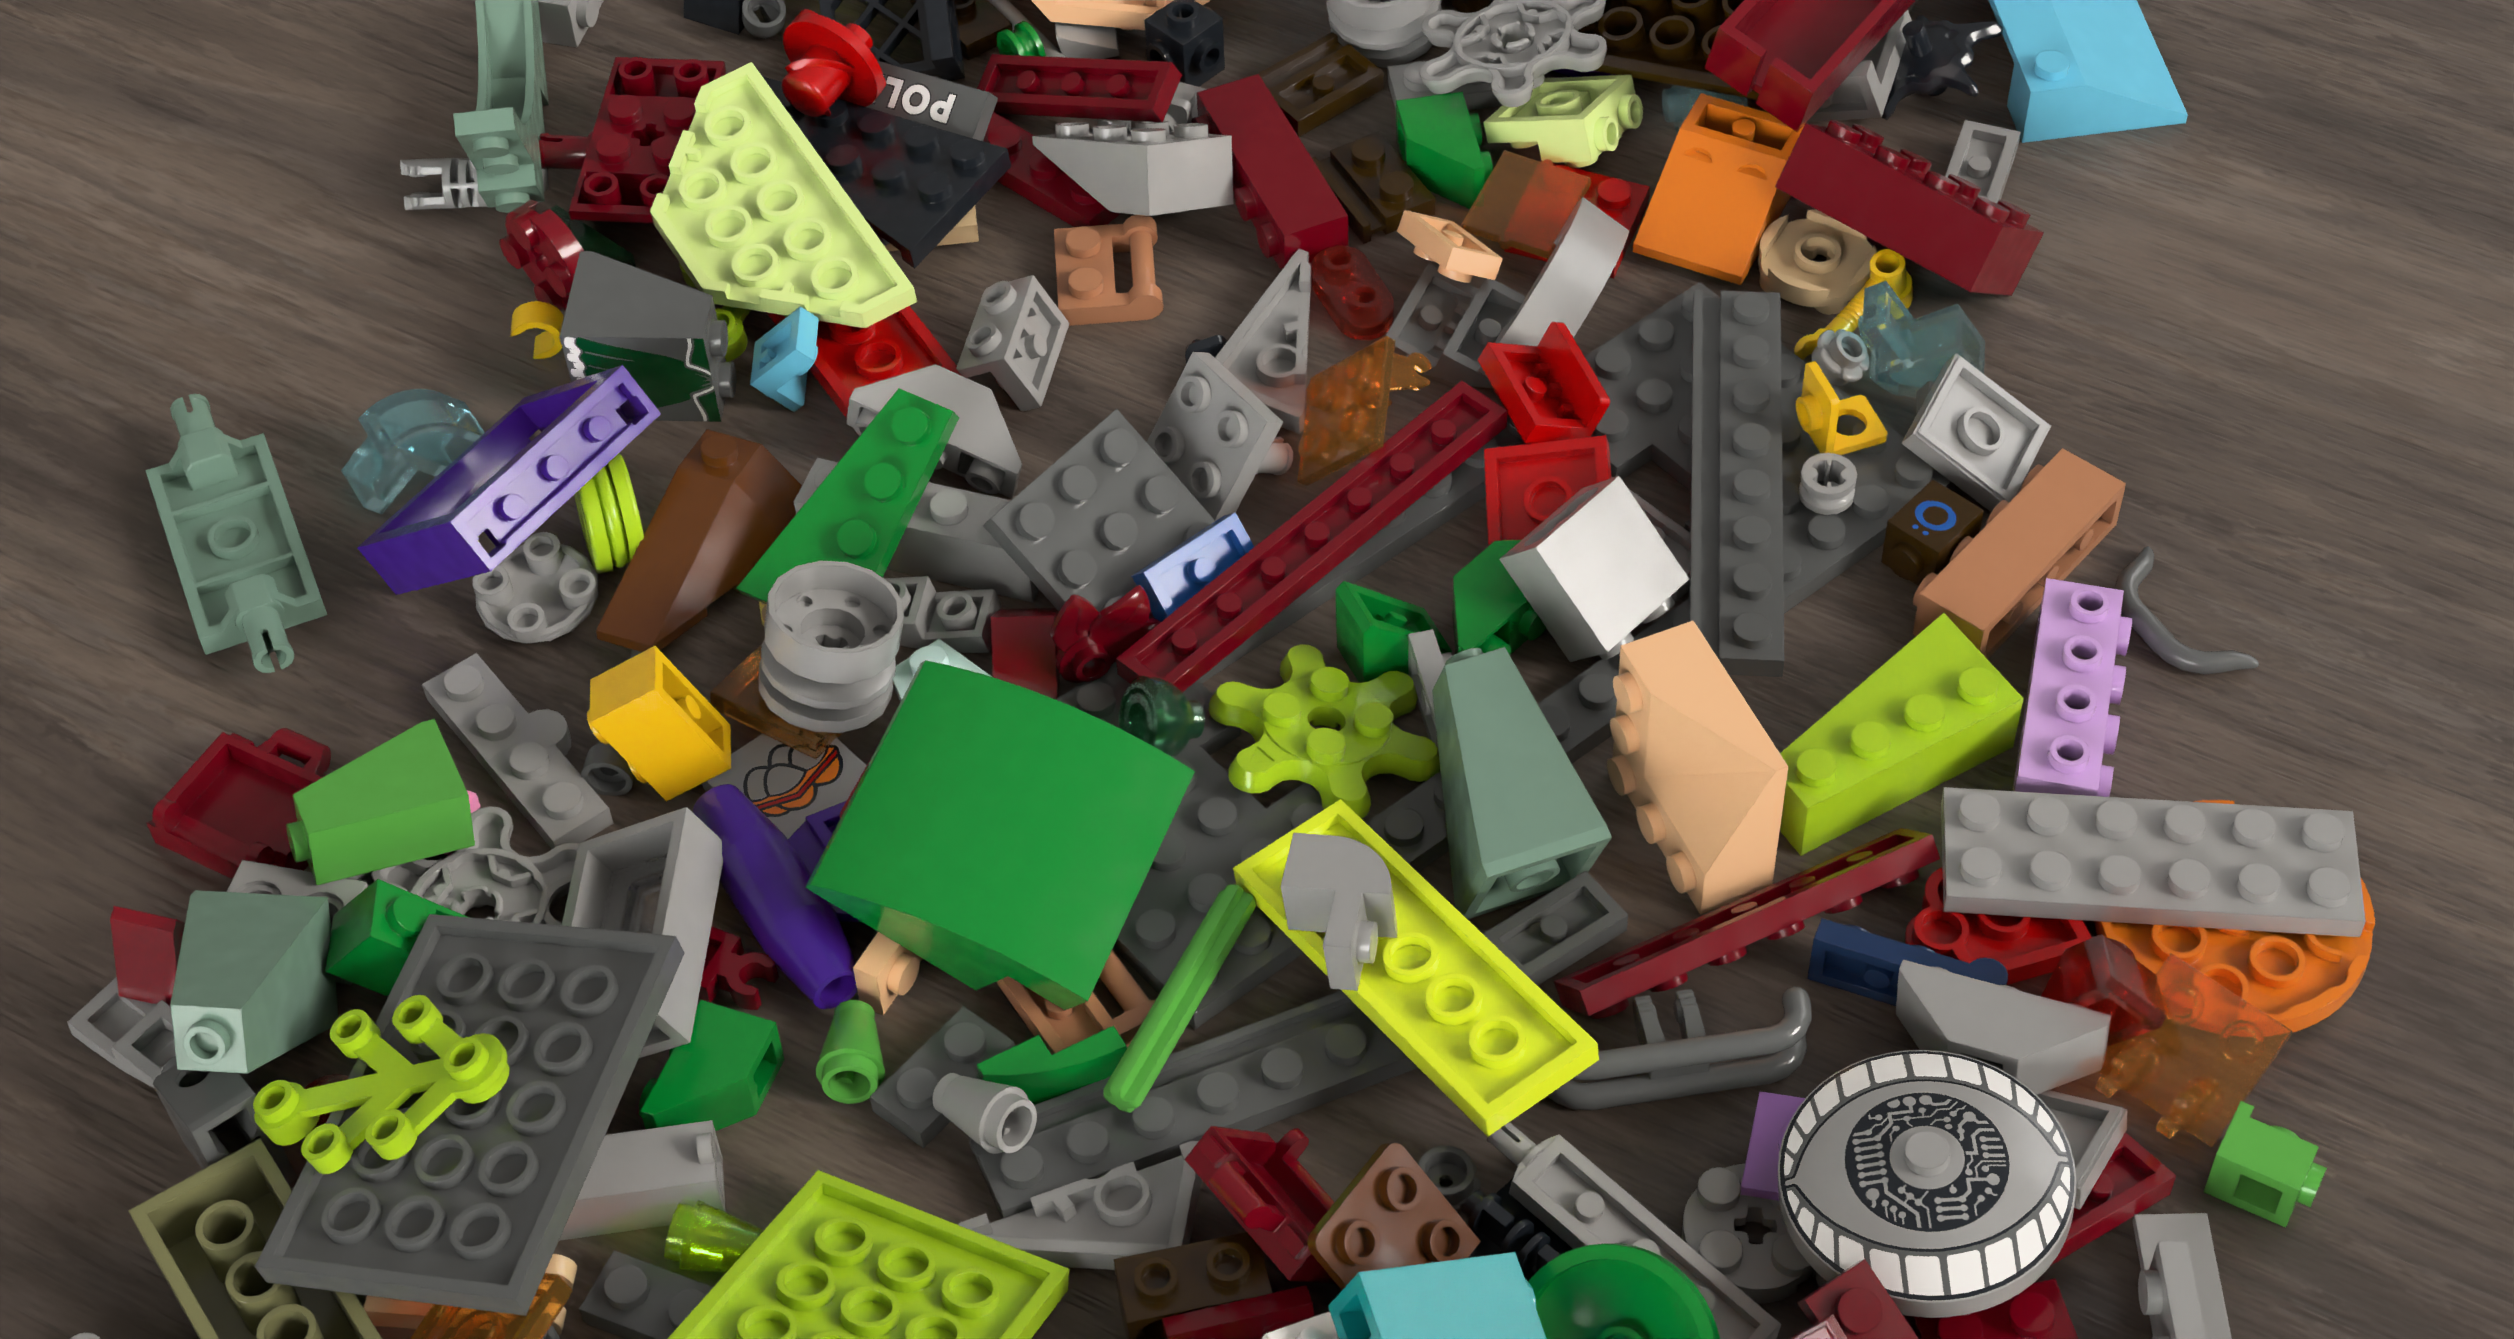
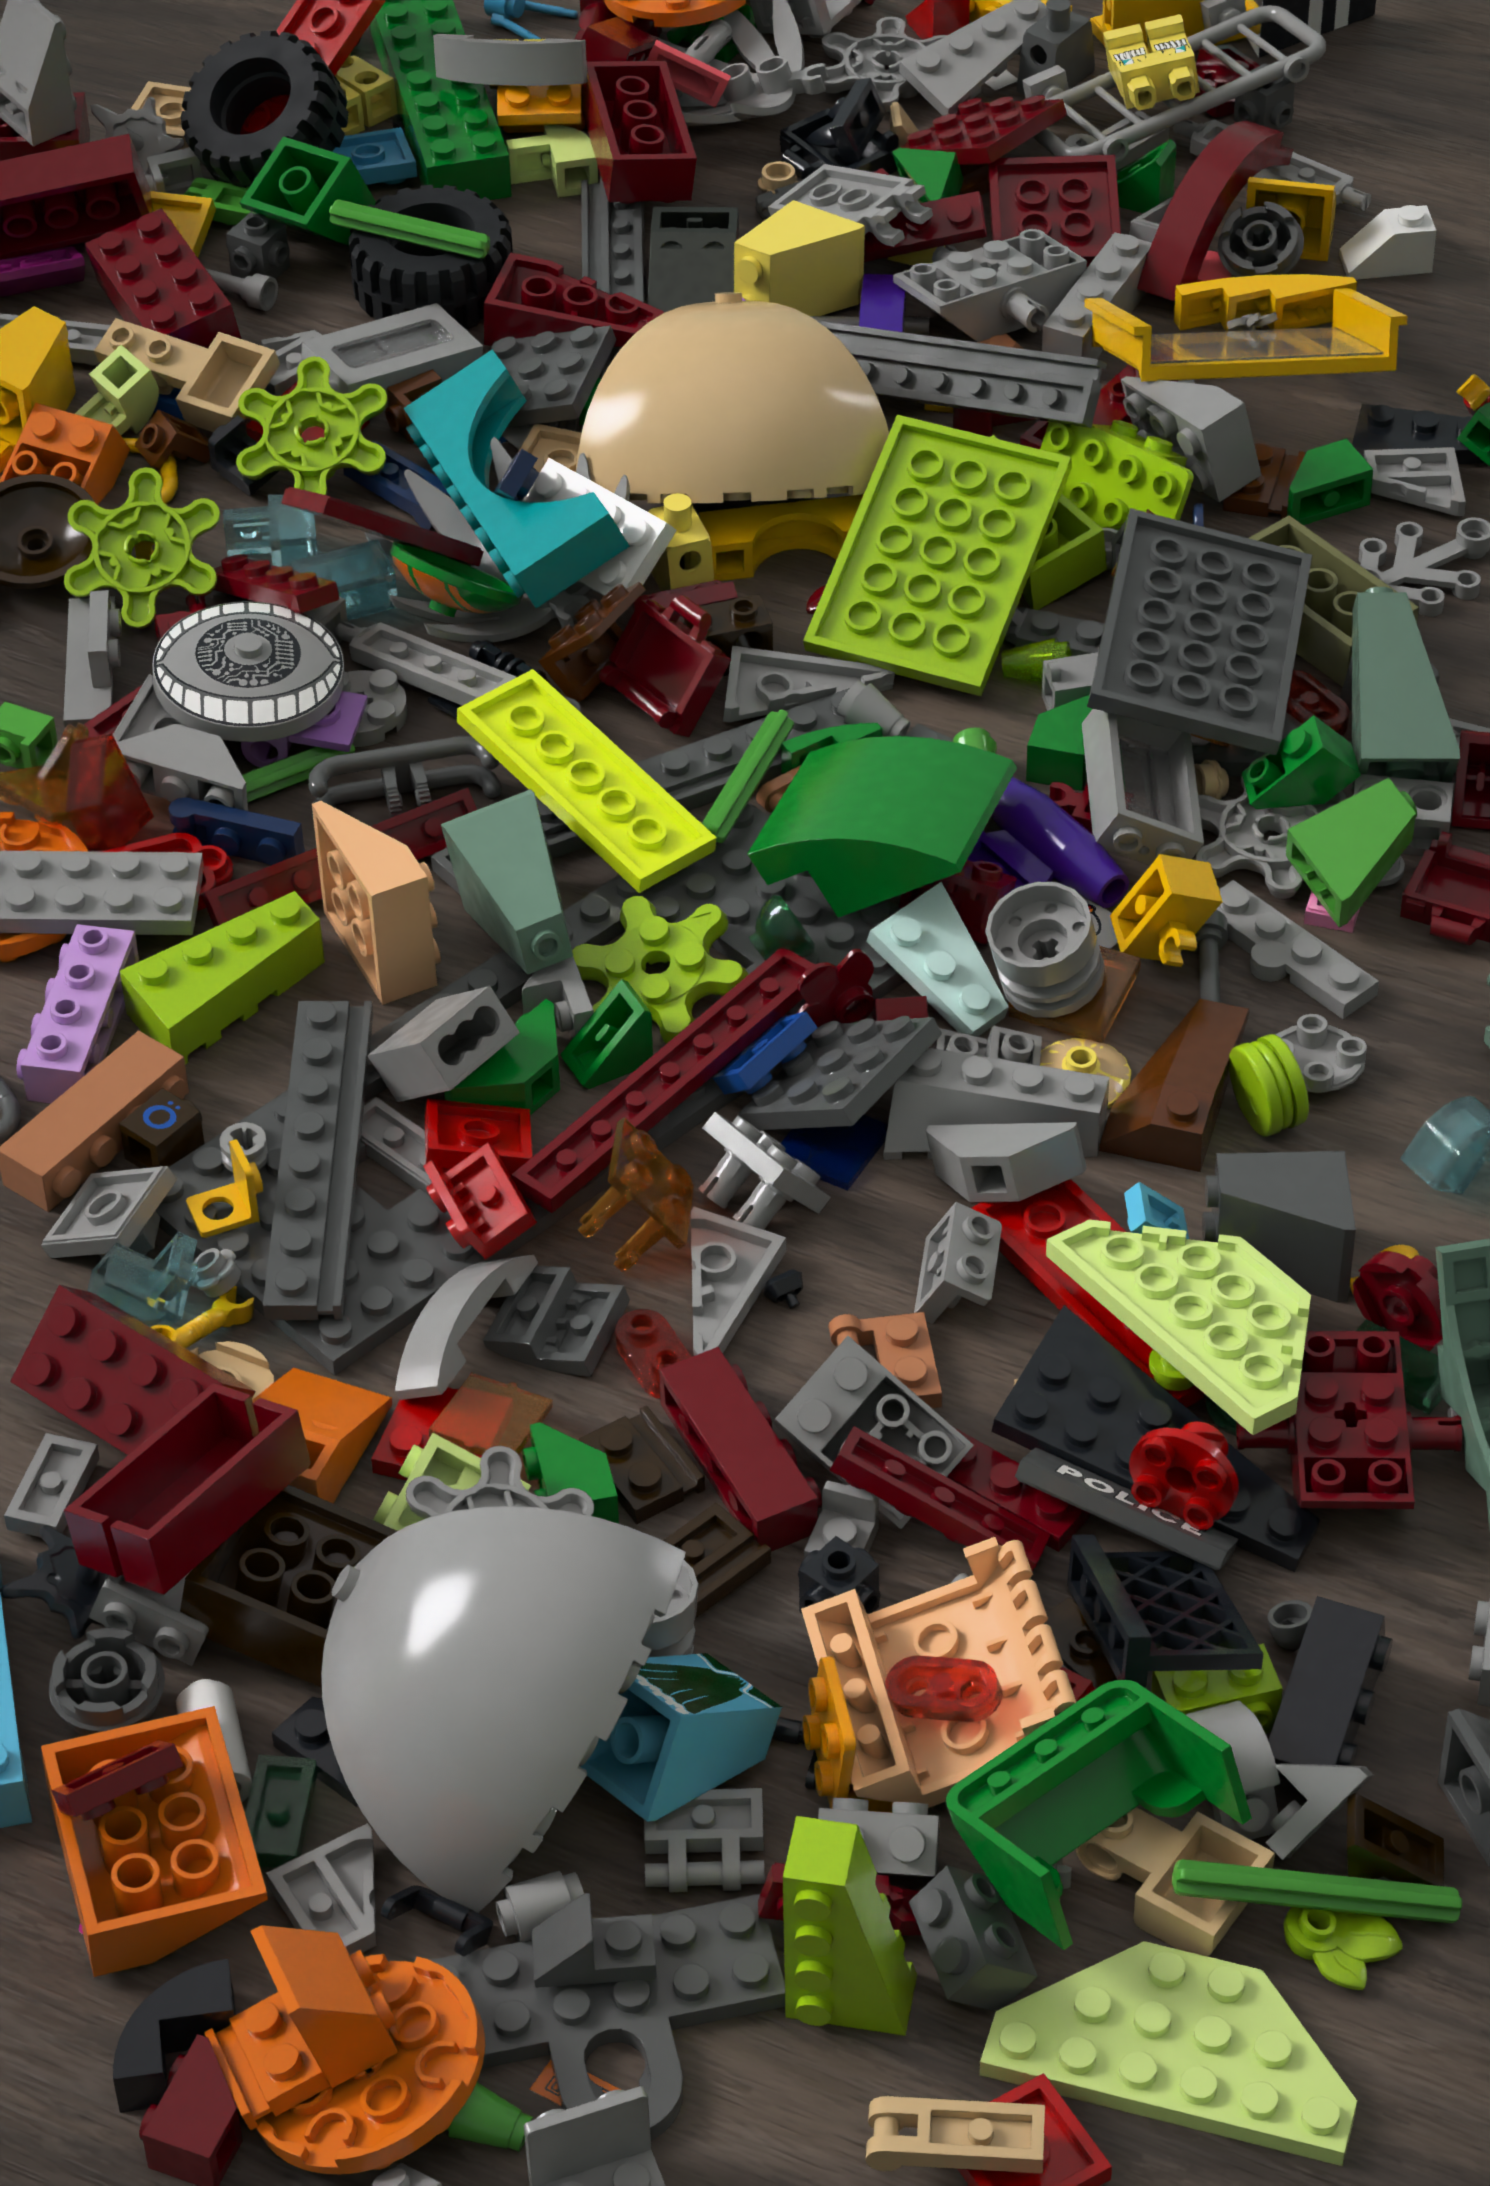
camera: 175 degrees right, 5 degrees down
(467, 1070) = (1209, 619): lime plant -> none
(509, 482) = (1294, 1103): dark purple window -> none
(865, 498) = (1052, 1046): green wing -> none
(1342, 891) = (633, 783): light grey brick -> none
(1450, 246) = (564, 1361): light nougat plate -> none

